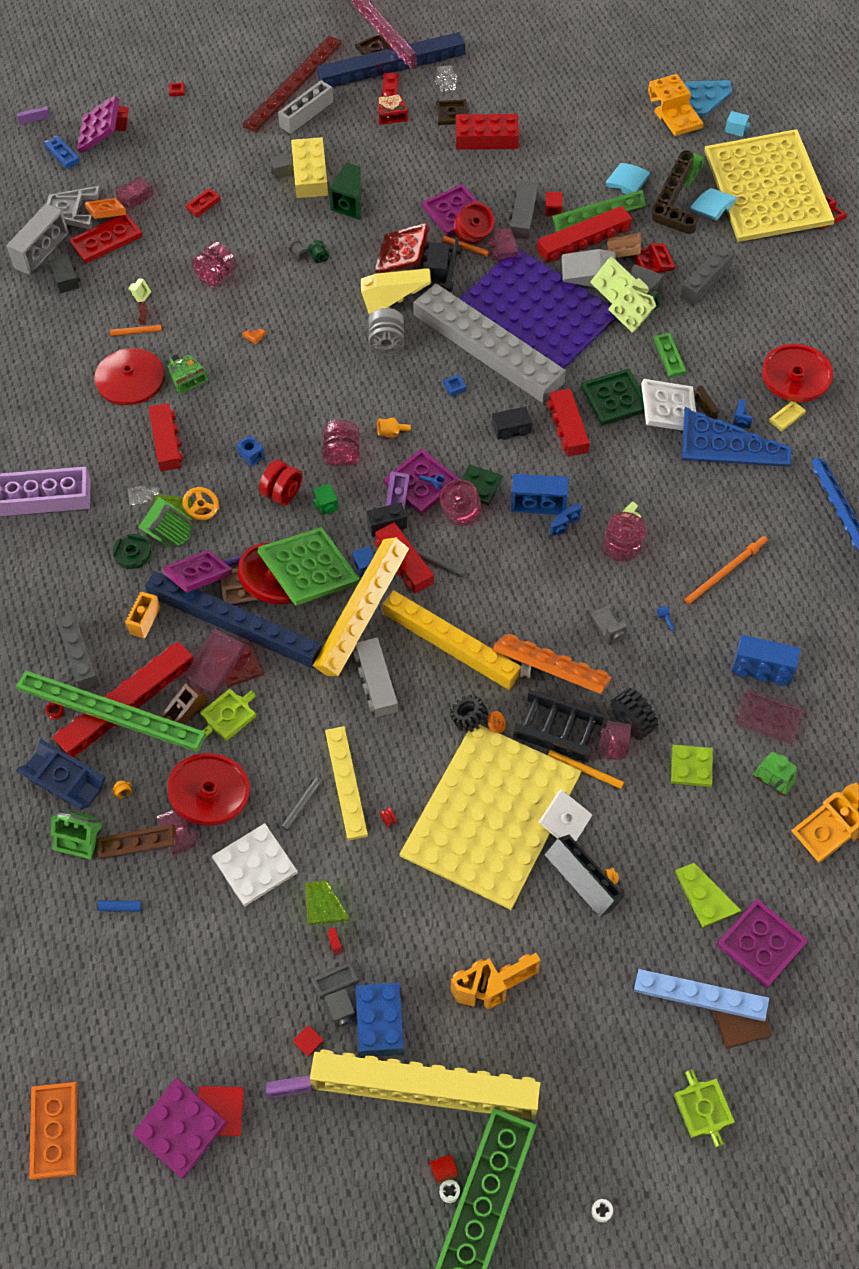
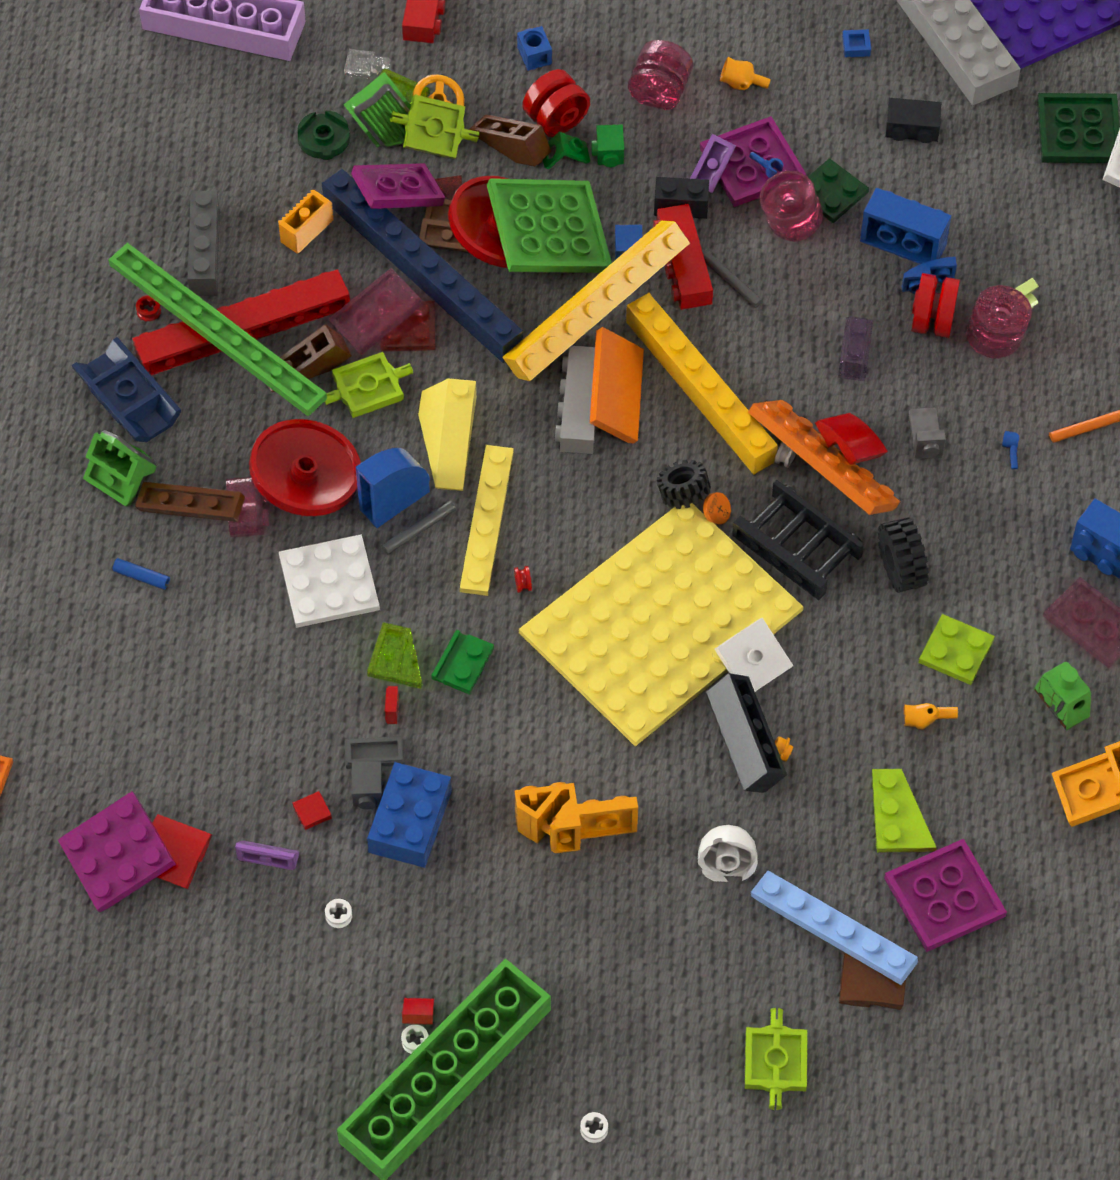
camera: 20 degrees right, 0 degrees up
(120, 787) = (196, 430): light orange plate -> none
(205, 523) = (434, 126): none -> lime plate
(231, 559) = (449, 185): none -> clear red tile
(264, 515) = (515, 139): none -> reddish brown slope
(273, 782) = (389, 484): none -> blue brick
(293, 725) = (446, 425): none -> light yellow wedge
(298, 508) = (567, 146): none -> green bracket
(363, 1116) = (332, 907): none -> white bush
(370, 891) = (462, 662): none -> green plate
(397, 660) = (616, 385): none -> orange tile
(424, 1084) = (432, 904): light yellow brick -> none
(540, 583) = (855, 348): none -> clear purple brick
(566, 643) = (852, 436): none -> red slope
(568, 422) = (995, 143): red brick -> none
(580, 539) = (935, 305): none -> red wheel
(587, 770) = (811, 607): light orange bar -> none
(611, 965) = (727, 849): none -> white cylinder
(615, 740) = (863, 580): clear pink brick -> none
(693, 819) = (919, 716): none -> light orange piece

